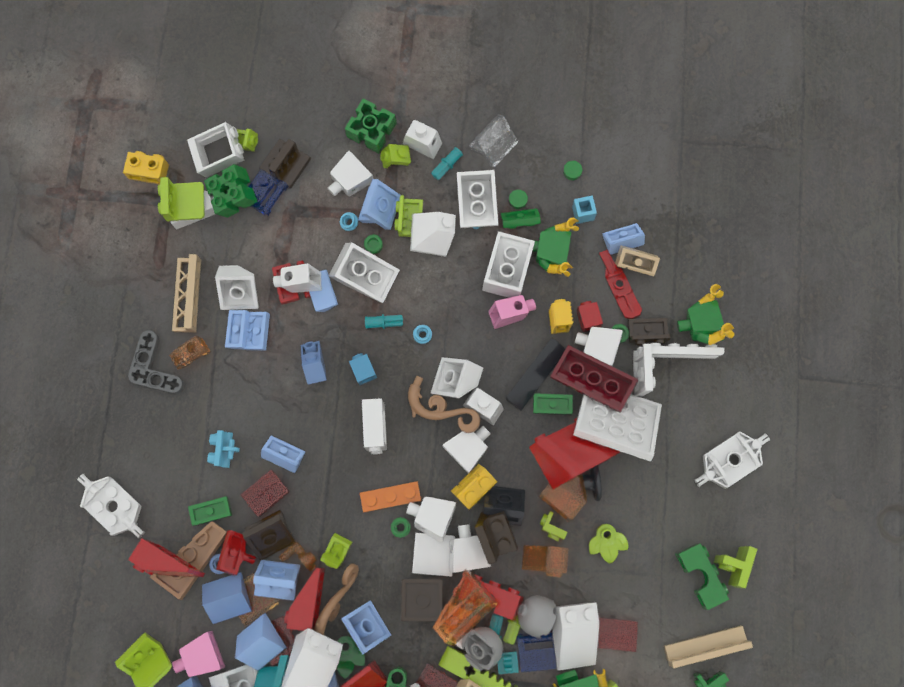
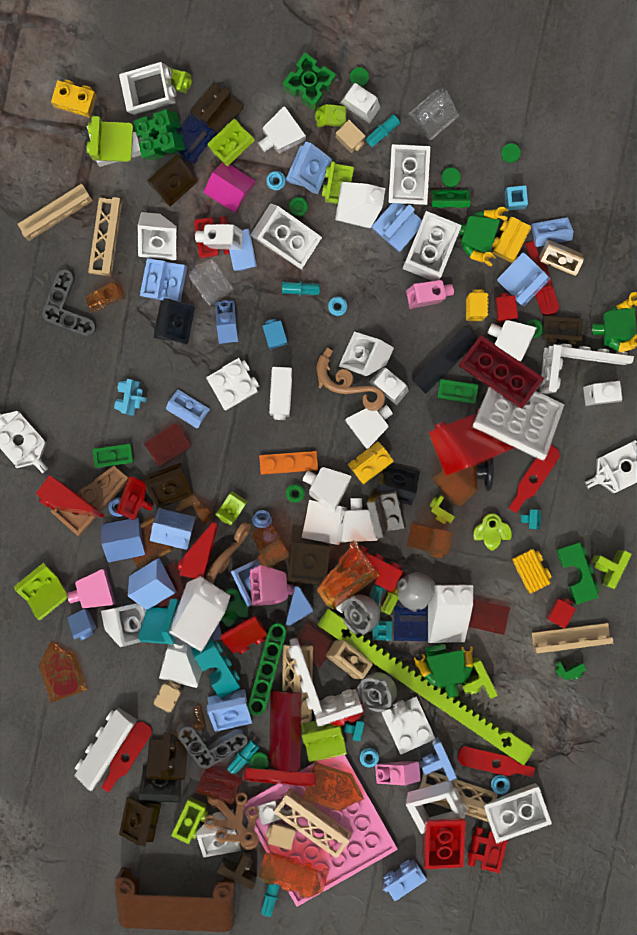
camera: 10 degrees right, 10 degrees up
(135, 277) = (55, 212): none -> tan fence
(247, 232) = (172, 180): none -> dark brown bracket
(261, 368) = (174, 321): none -> black bracket
(293, 325) = (210, 281): none -> clear bracket
(300, 190) = (230, 142): none -> lime bracket
(303, 232) = (229, 186): none -> dark pink slope
(326, 423) = (233, 384): none -> white plate
(369, 558) = (262, 519): none -> medium blue plate
(379, 586) = (269, 546): none -> clear orange wedge
(383, 629) = (269, 586): none -> bright pink torso
(416, 172) = (350, 137): none -> tan brick
(417, 647) = (299, 606): none -> medium blue slope
(419, 115) = (359, 76): none -> green tile
(472, 249) = (398, 225): none -> light blue bracket
(585, 249) = (511, 239): none -> yellow brick
(603, 286) = (523, 279): none -> light blue bracket
(647, 472) = (540, 469): none -> red piece
(648, 525) = (533, 519): none -> teal tile
(654, 579) = (531, 570): none -> yellow brick
(692, 620) = (561, 612): none -> red brick
(700, 388) = (602, 393): none -> white torso

